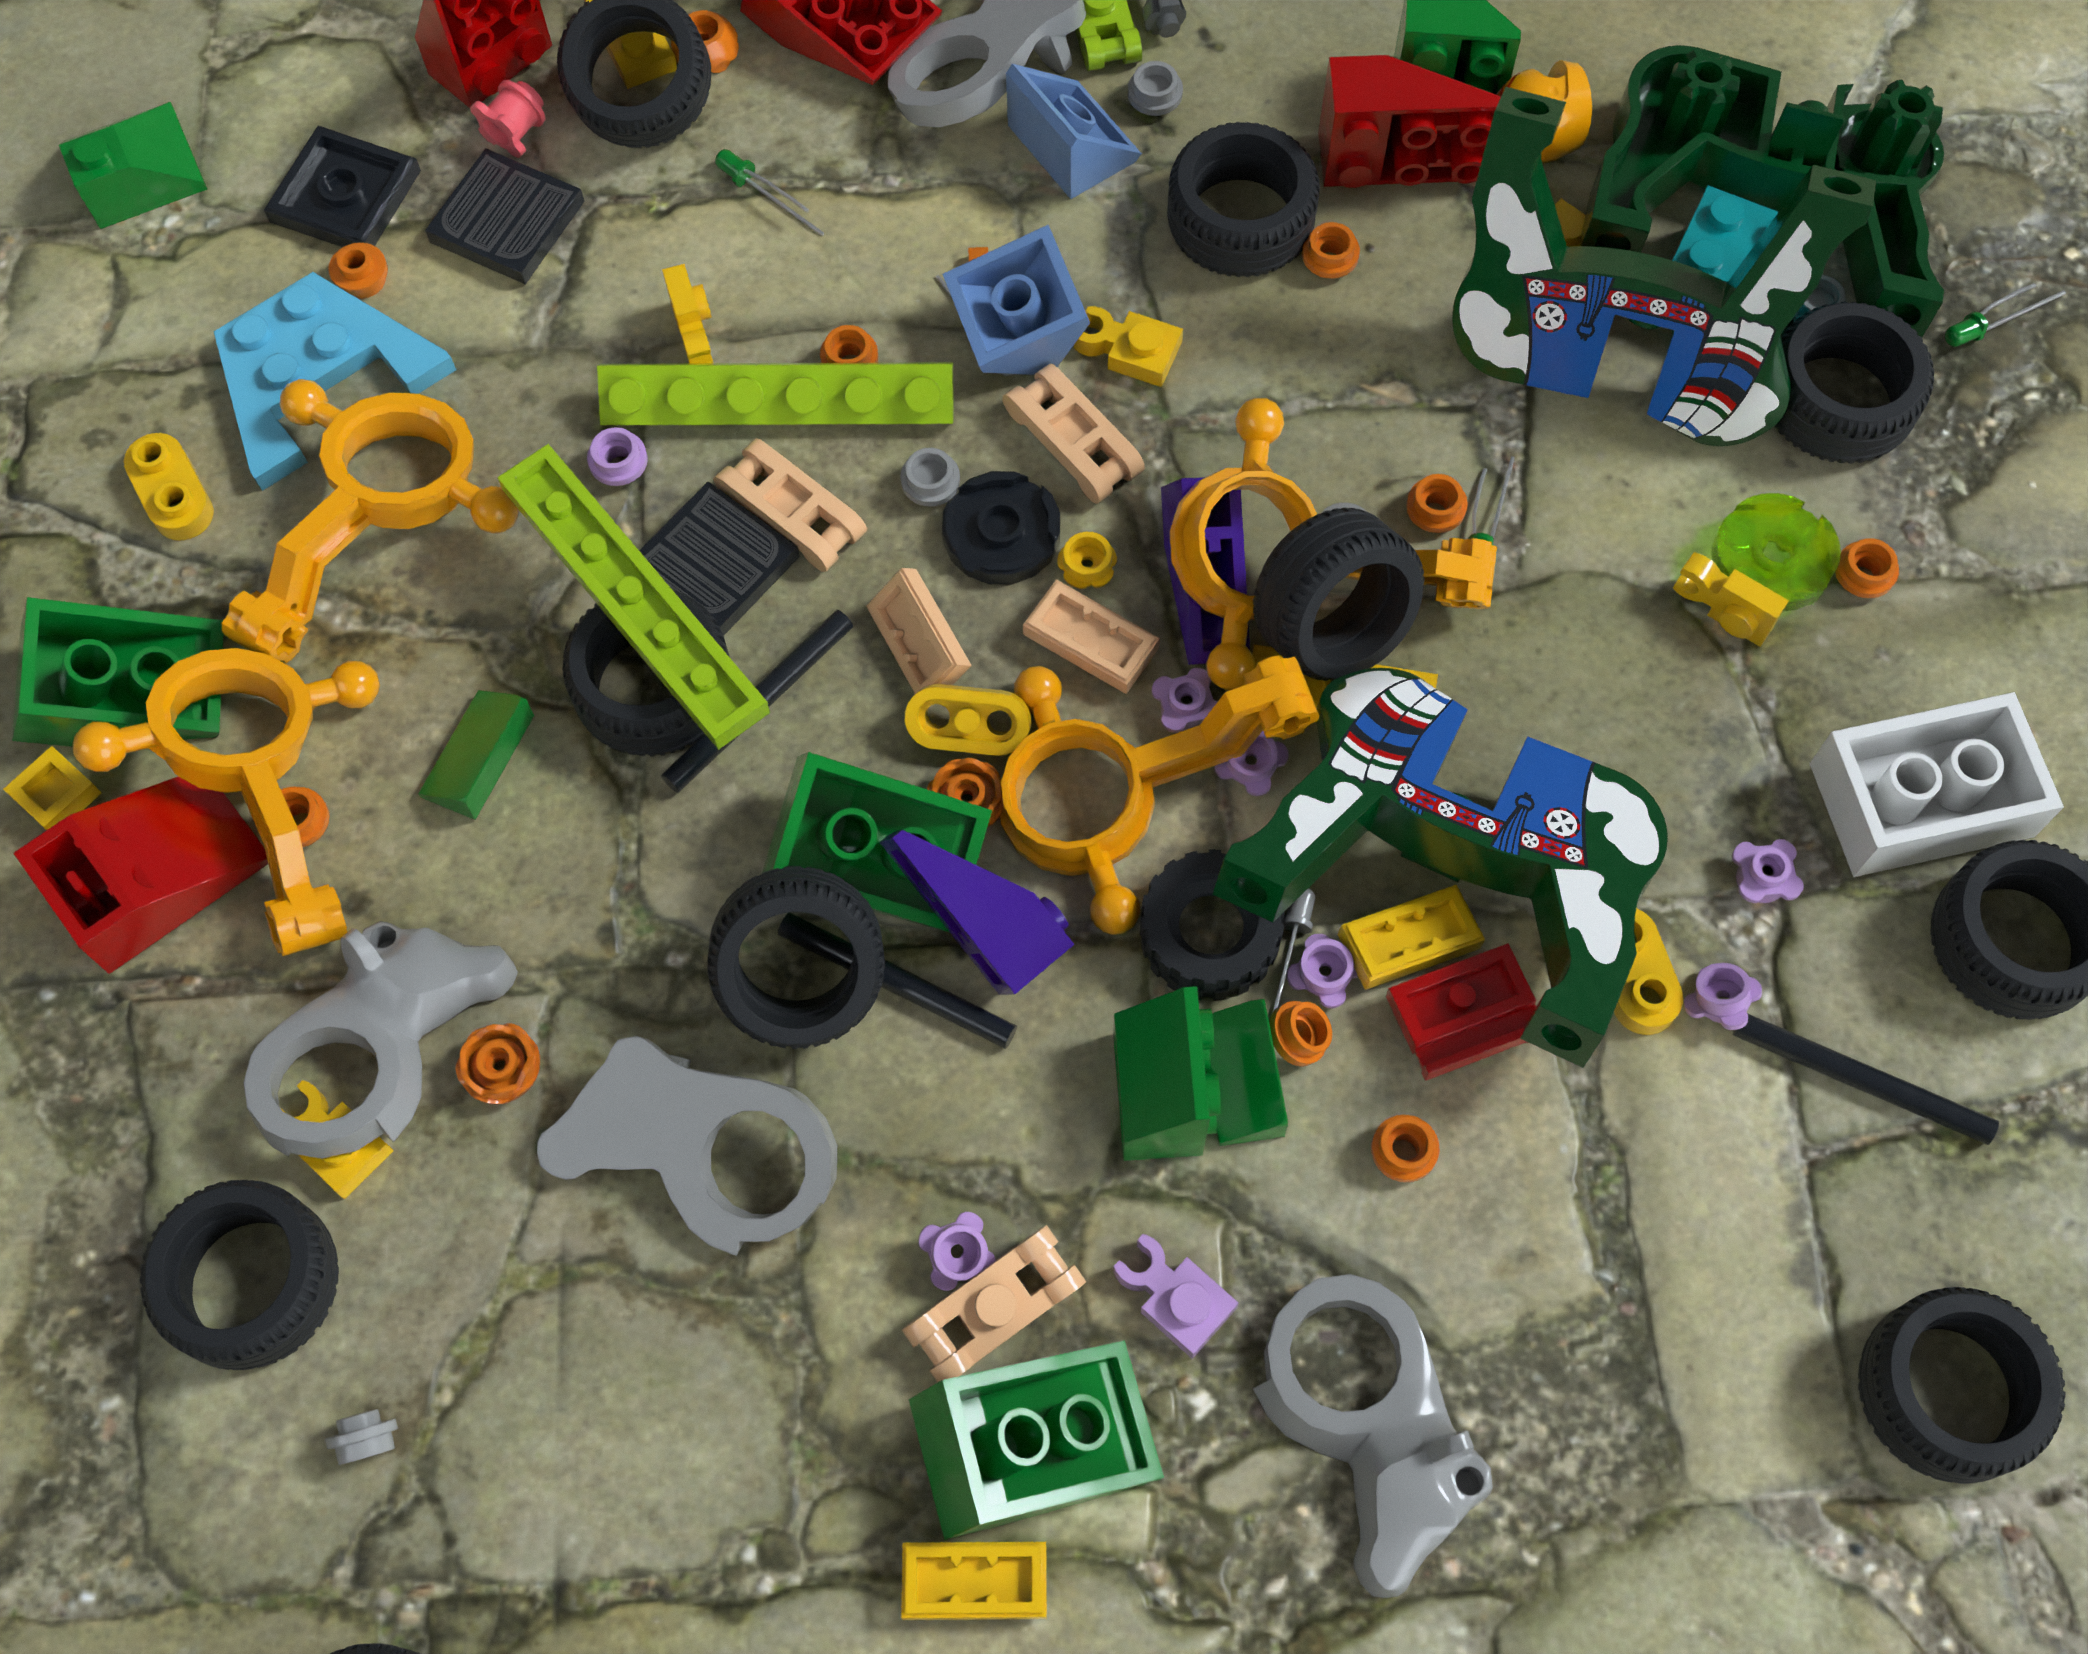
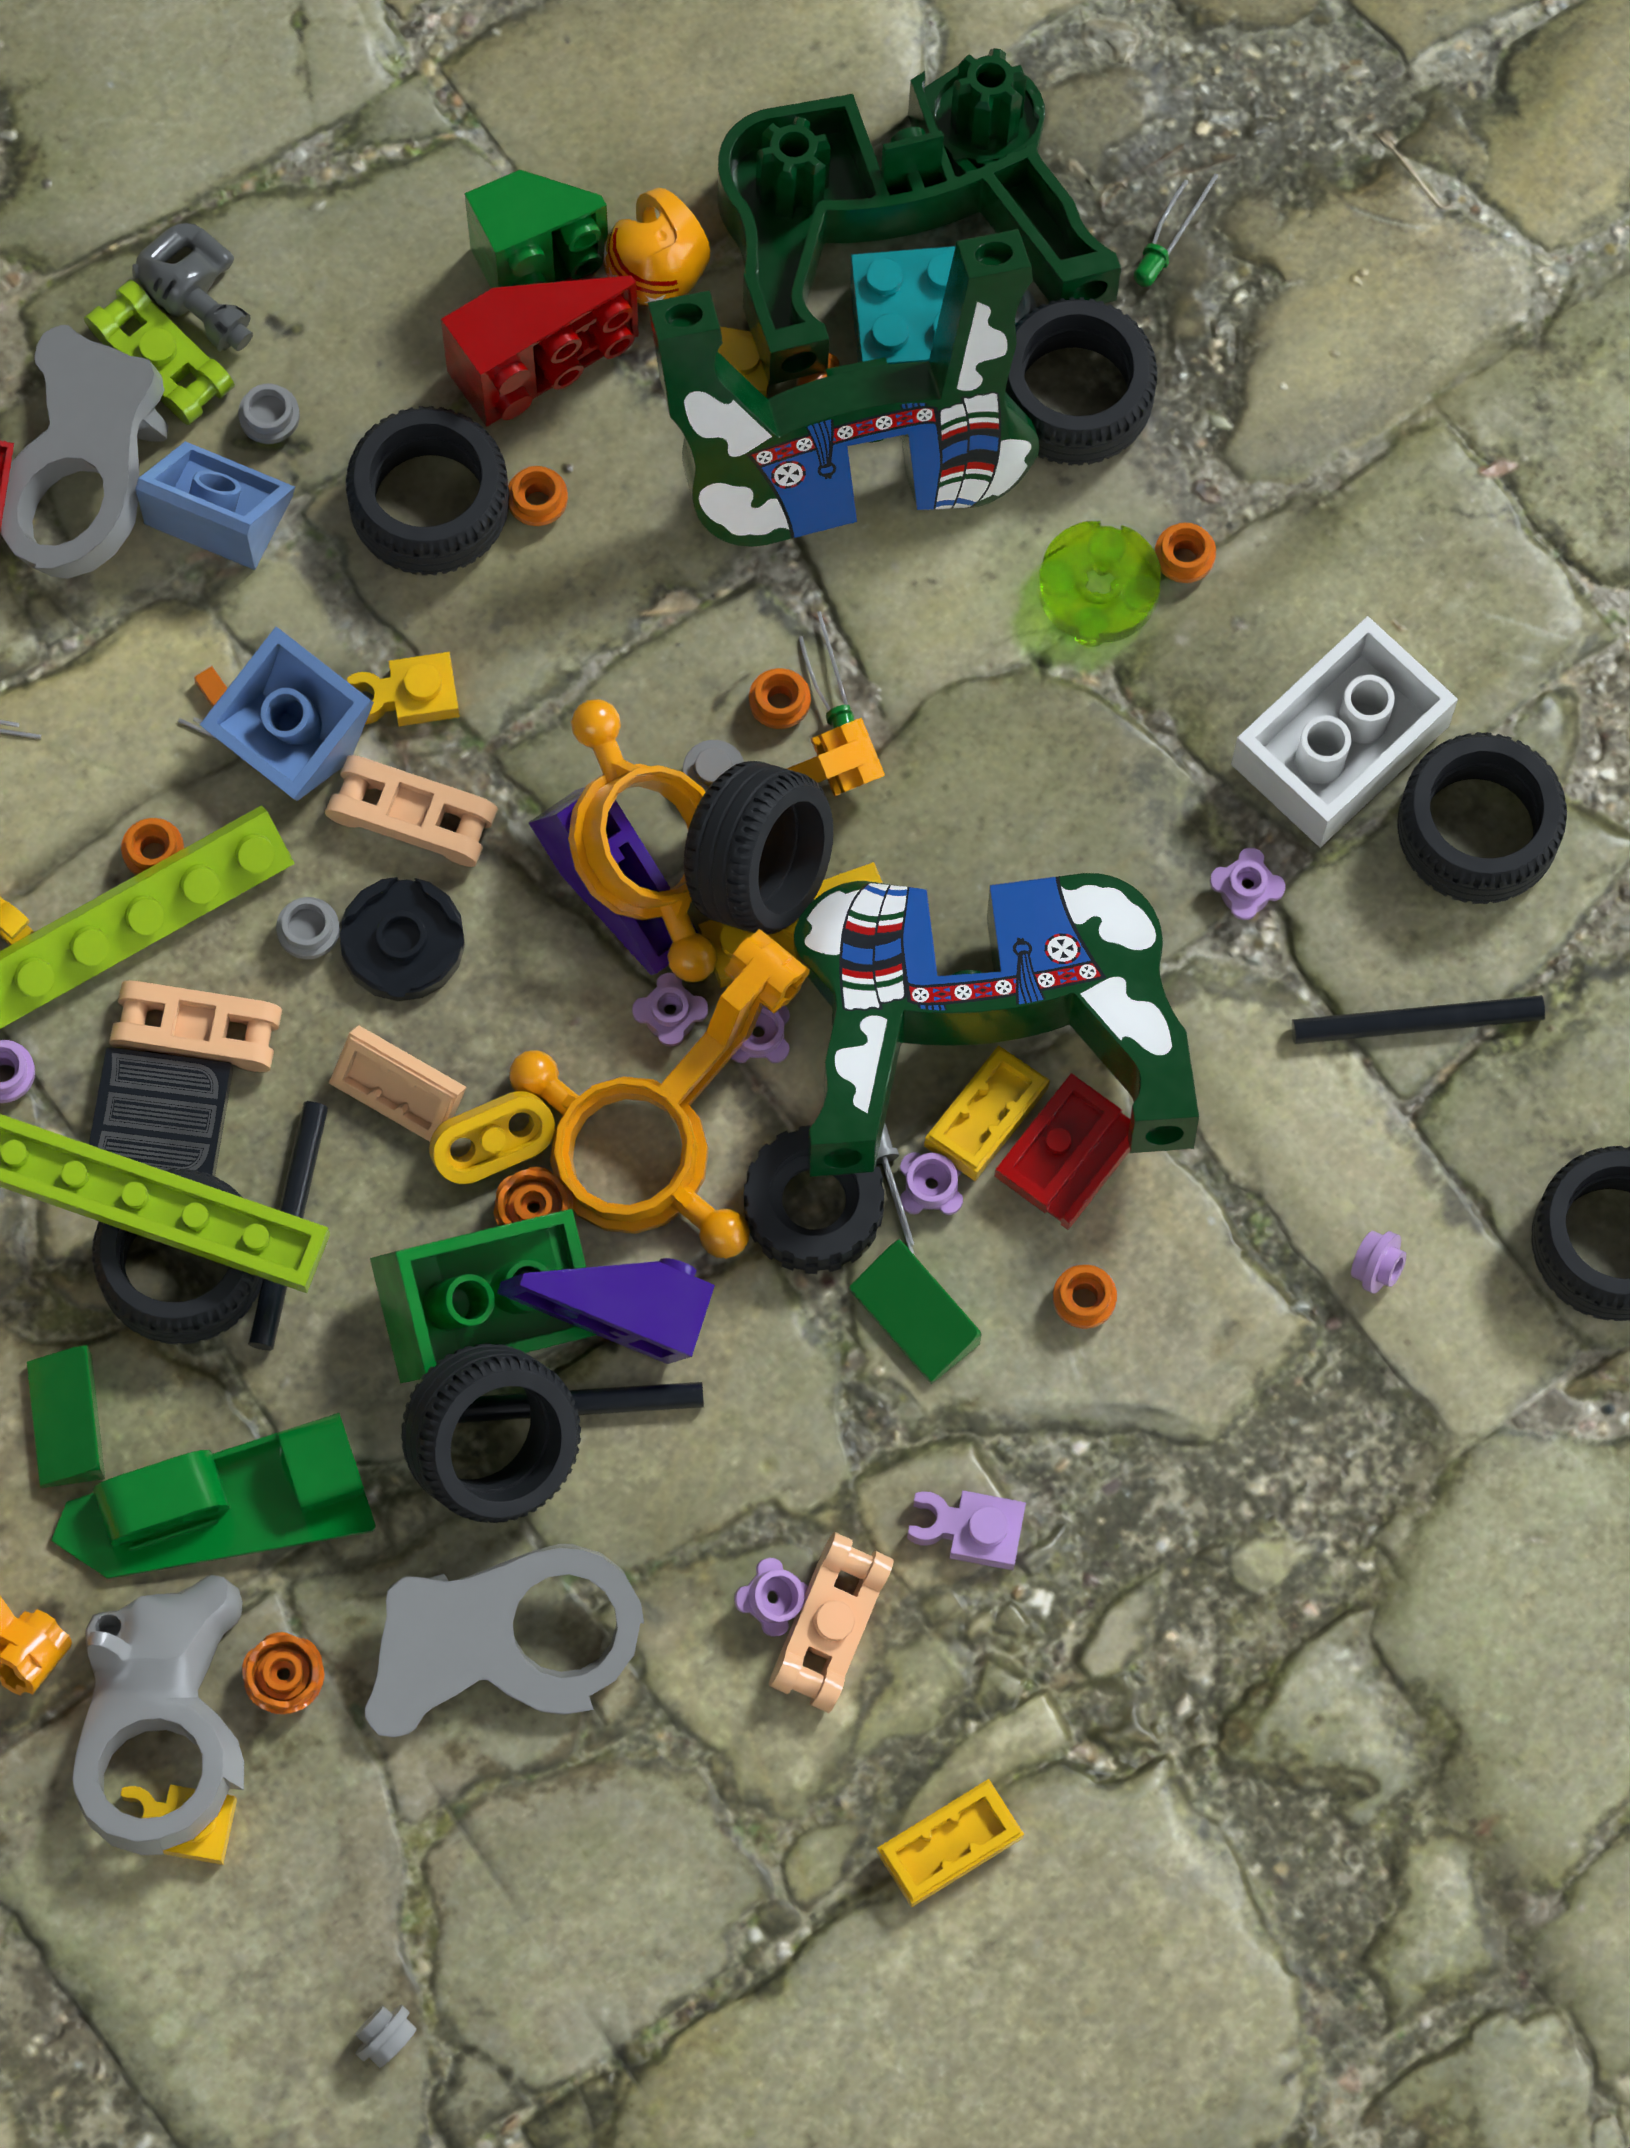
camera: 35 degrees left, 5 degrees up
(187, 1236) = (150, 1915): black tyre -> none
(553, 895) = (221, 1504): none -> green panel
(1033, 1438) = (928, 1706): green slope -> none
(1087, 547) = (502, 913): yellow plate -> none
(1091, 636) = (550, 998): light nougat plate -> none
(1162, 1079) = (858, 1353): green slope -> none
(1300, 1032) = (944, 1249): orange plate -> none
(1406, 1458) = (1228, 1546): light grey animal -> none
(1650, 970) = (1205, 1027): yellow plate -> none
(1704, 1275) = (1378, 1261): none -> lavender plate
(1723, 981) = (1265, 1001): lavender plate -> none
(1736, 600) = (1095, 650): yellow plate -> none

